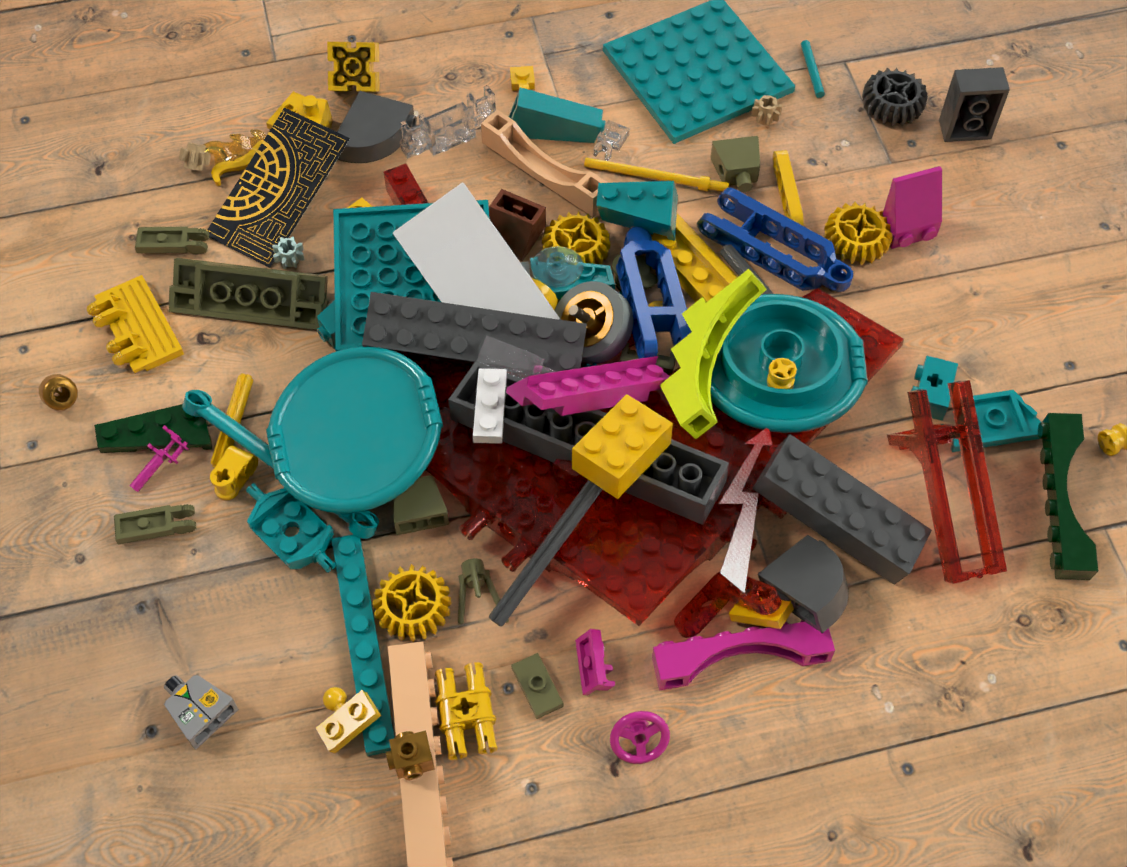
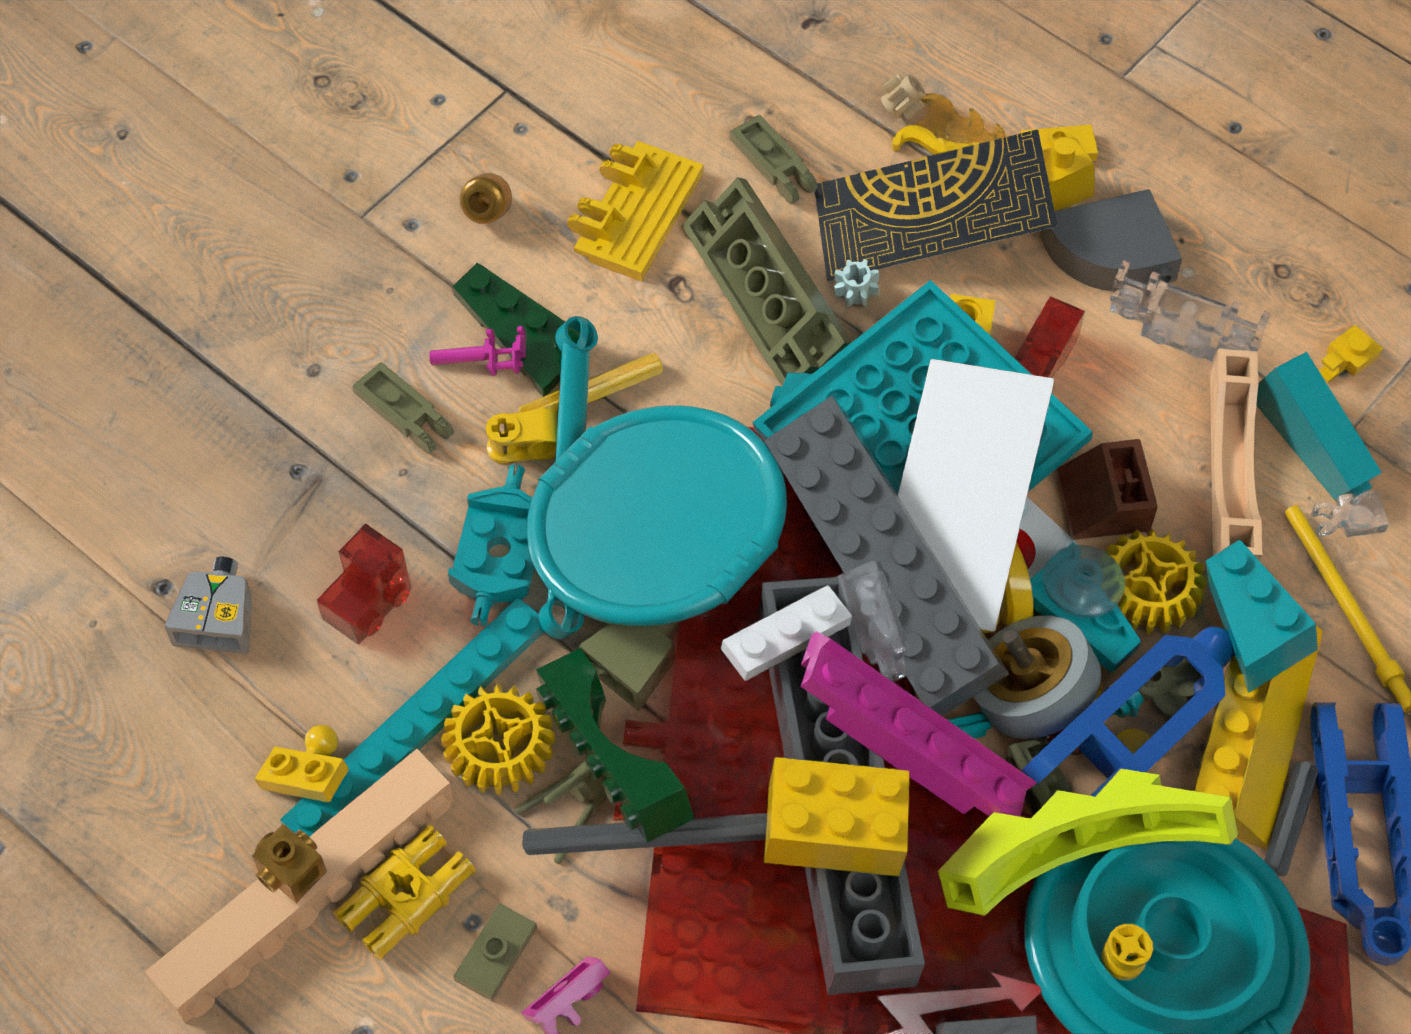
camera: 55 degrees right, 0 degrees up
(257, 607) = (369, 587): none -> clear red brick
(353, 66) = (1177, 156): yellow brick -> none
(526, 533) = (645, 788): none -> dark green arch

